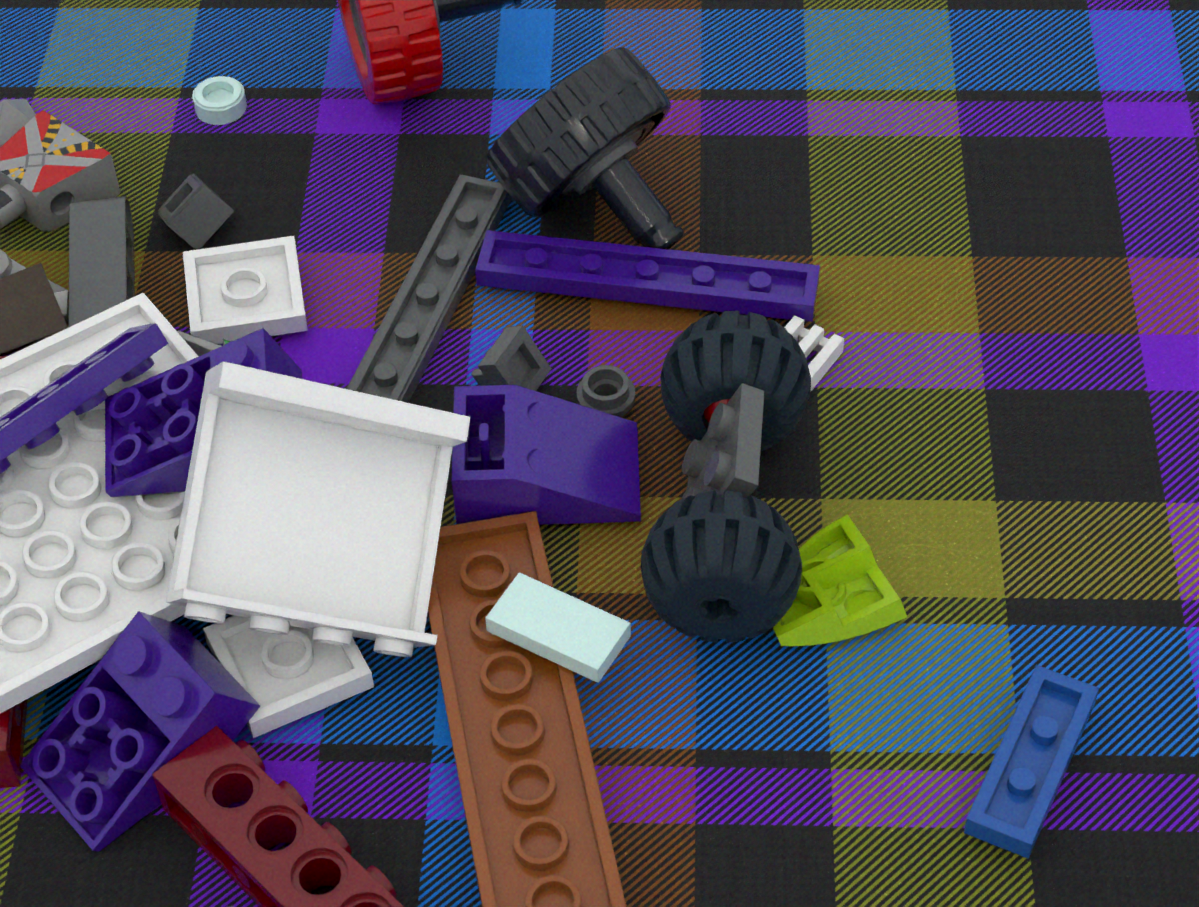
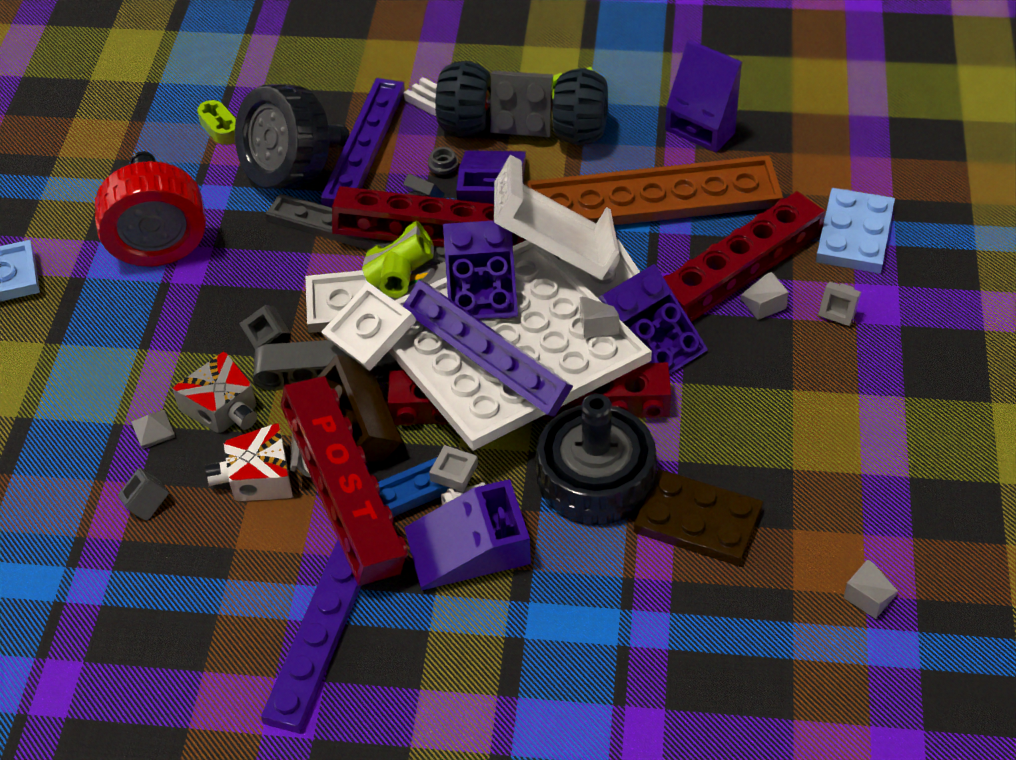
camera: 85 degrees left, 0 degrees up
(71, 601) = (598, 318): none -> light grey slope
(91, 290) = (369, 326): none -> white plate
(219, 100) = (162, 325): light aqua tile -> none
(295, 322) = (391, 266): none -> lime connector
(420, 315) = (388, 214): none -> dark red brick
(558, 627) = (601, 169): light aqua tile -> none
(699, 86) = (217, 121): none -> lime beam
(764, 799) = (704, 97): none -> dark purple slope
(1031, 761) = (666, 37): blue plate -> none

